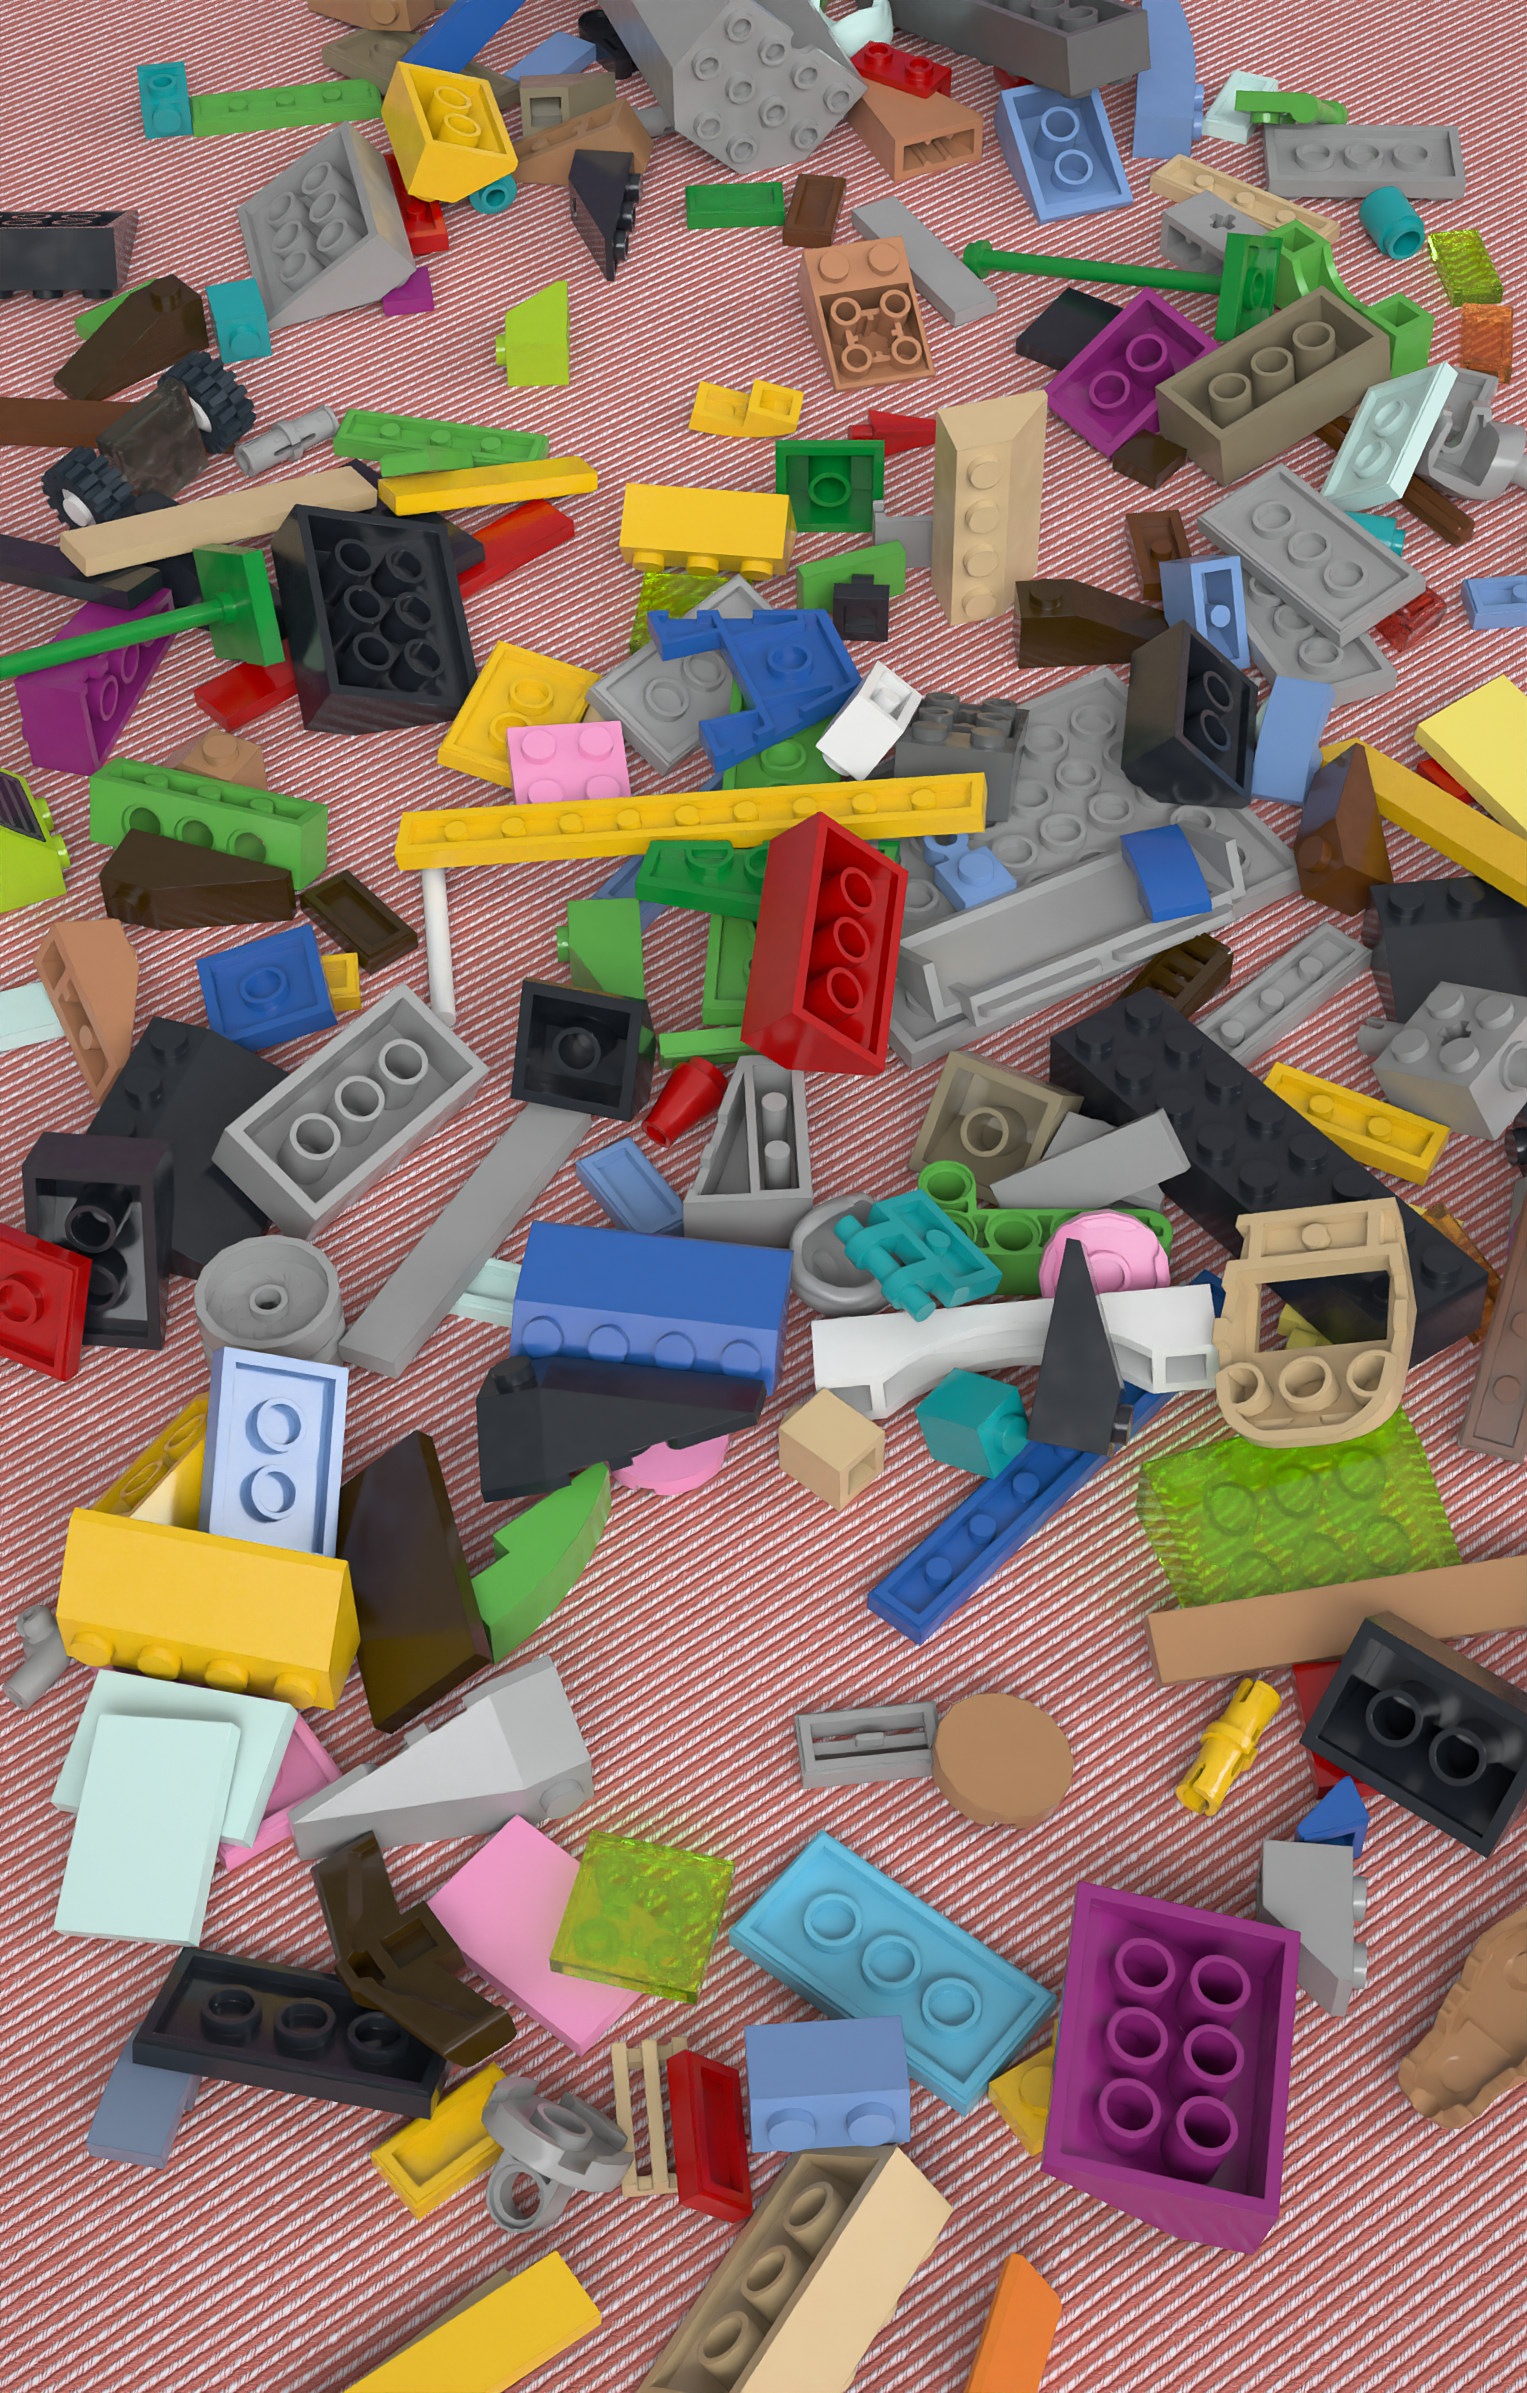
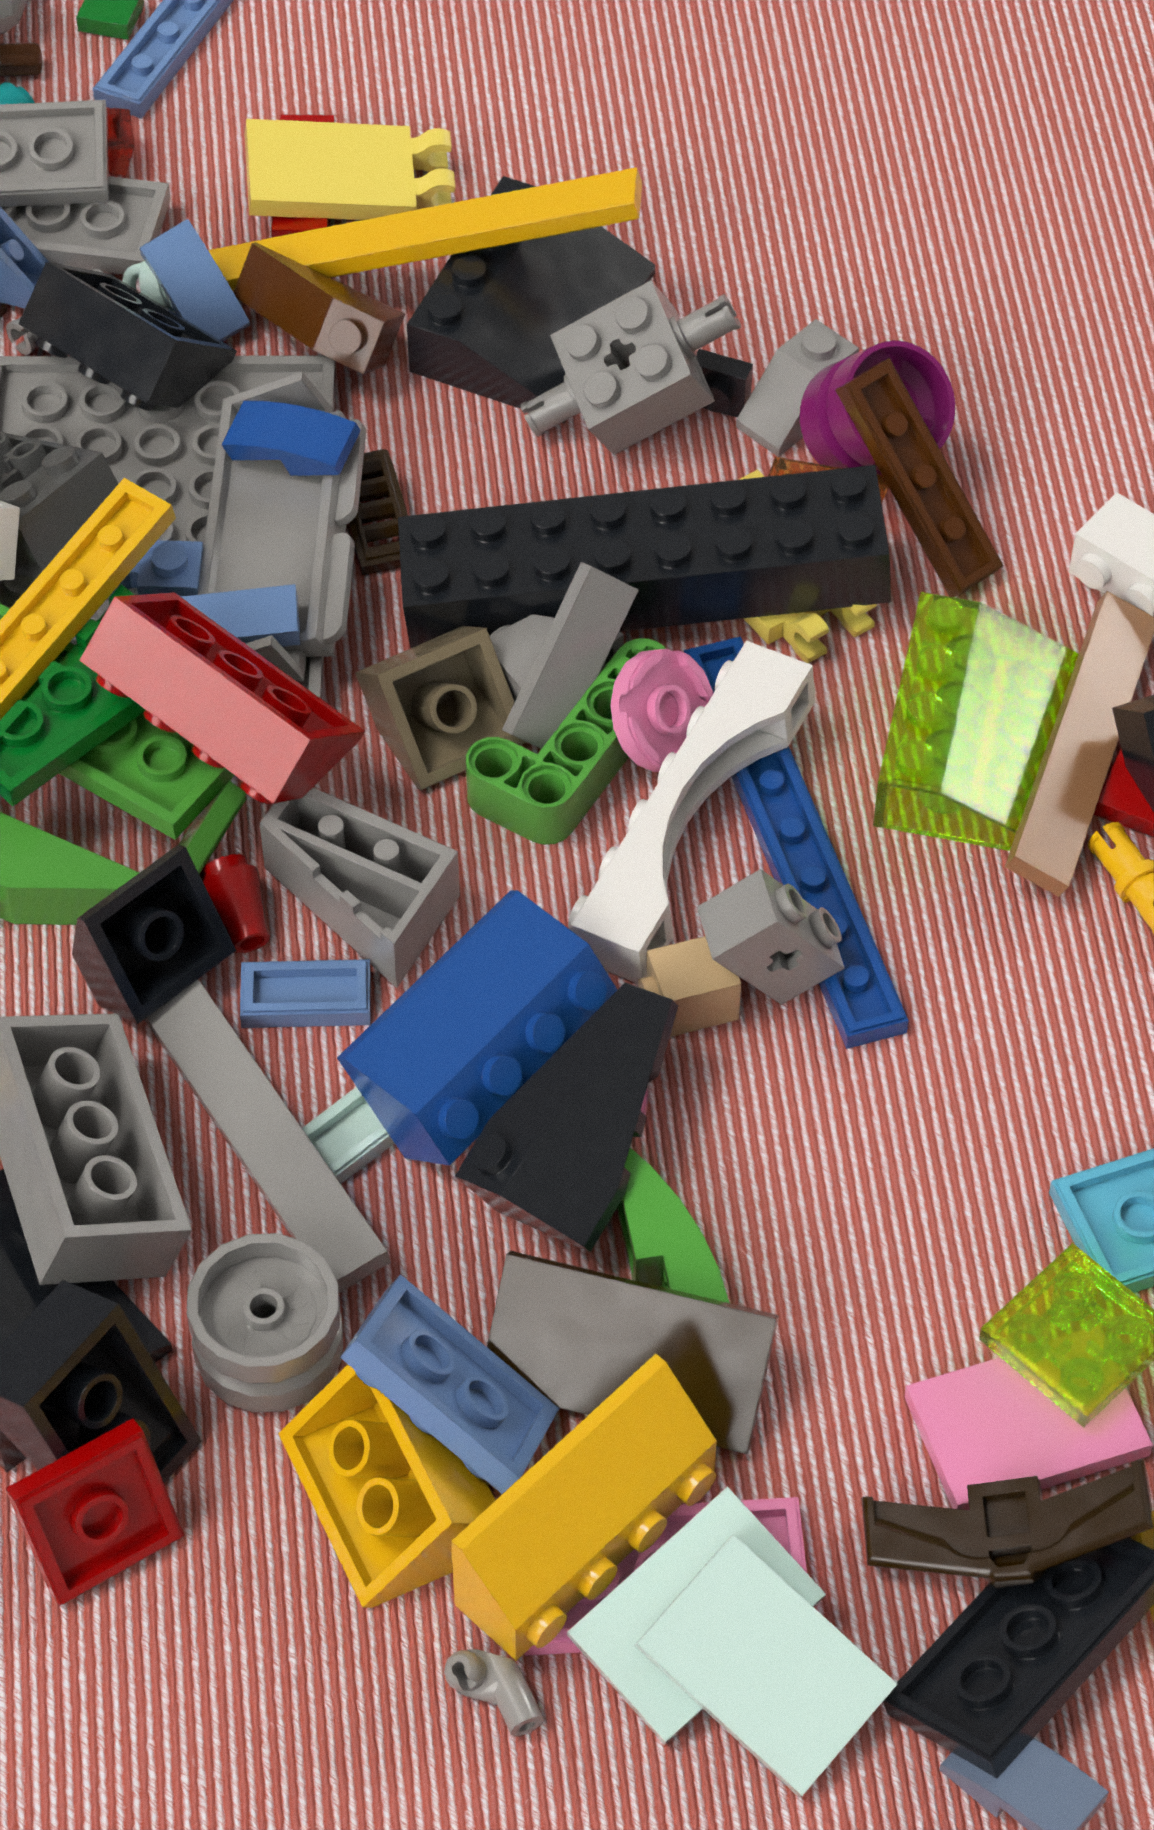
camera: 60 degrees left, 5 degrees up
(469, 1777) = (865, 1381): wedge -> none
(822, 1271) = (518, 856): light grey piece -> none
(869, 1755) = (967, 1152): light grey tile -> none
(900, 1466) = (771, 936): none -> light grey brick
(929, 1243) = (578, 810): teal plate -> none
(950, 940) = (254, 612): none -> medium blue tile
(974, 1423) = (740, 855): teal brick -> none
(1001, 1760) = (1065, 1028): medium nougat tile -> none
(1079, 1377) = (773, 769): black slope -> none
(1286, 993) = (436, 443): light grey tile -> none
(1321, 1390) = (910, 629): tan slope -> none
(1362, 1125) = (642, 463): yellow plate -> none

